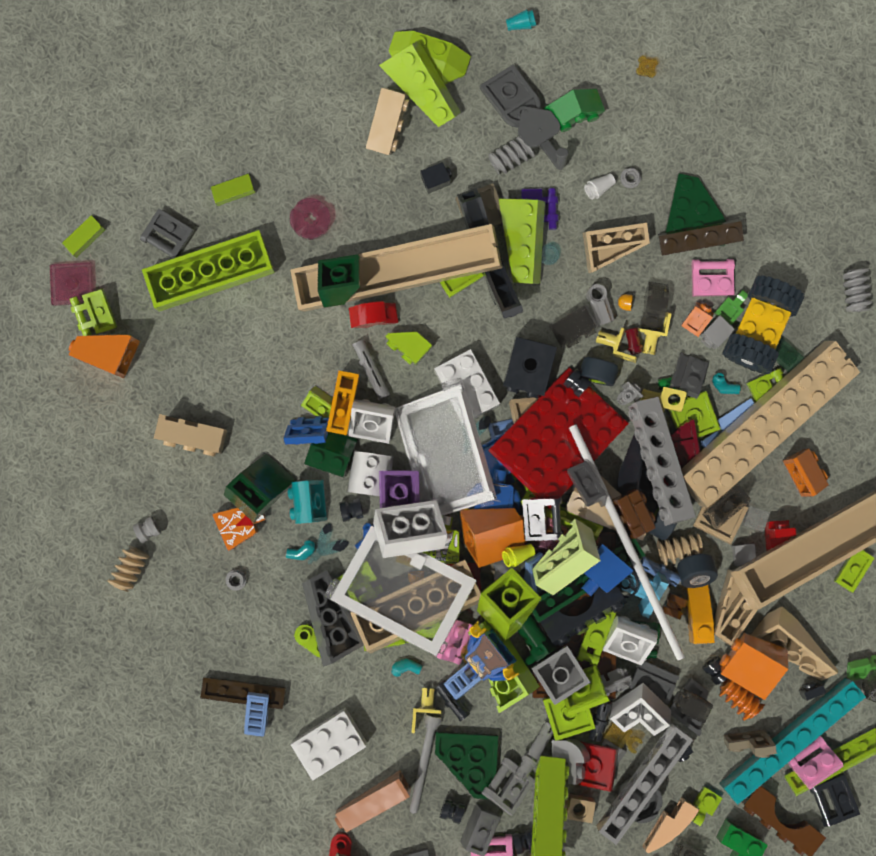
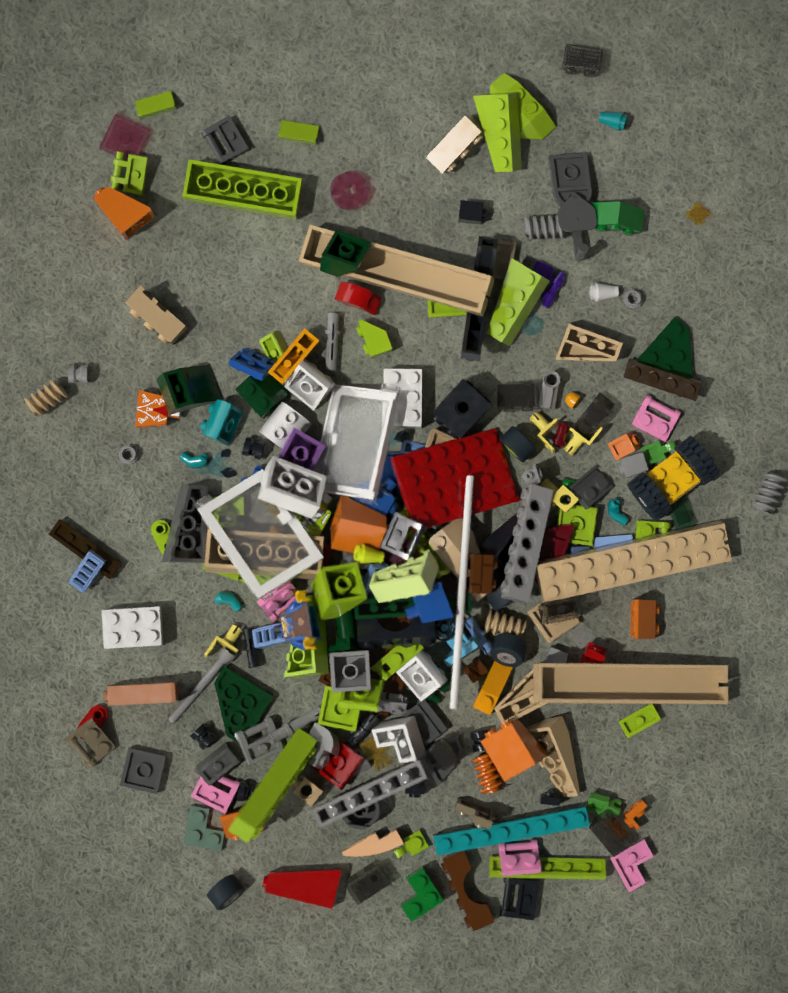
camera: 30 degrees right, 0 degrees up
(577, 383) = (493, 443): black wheel -> none
(587, 484) = (454, 528): flat silver panel -> none

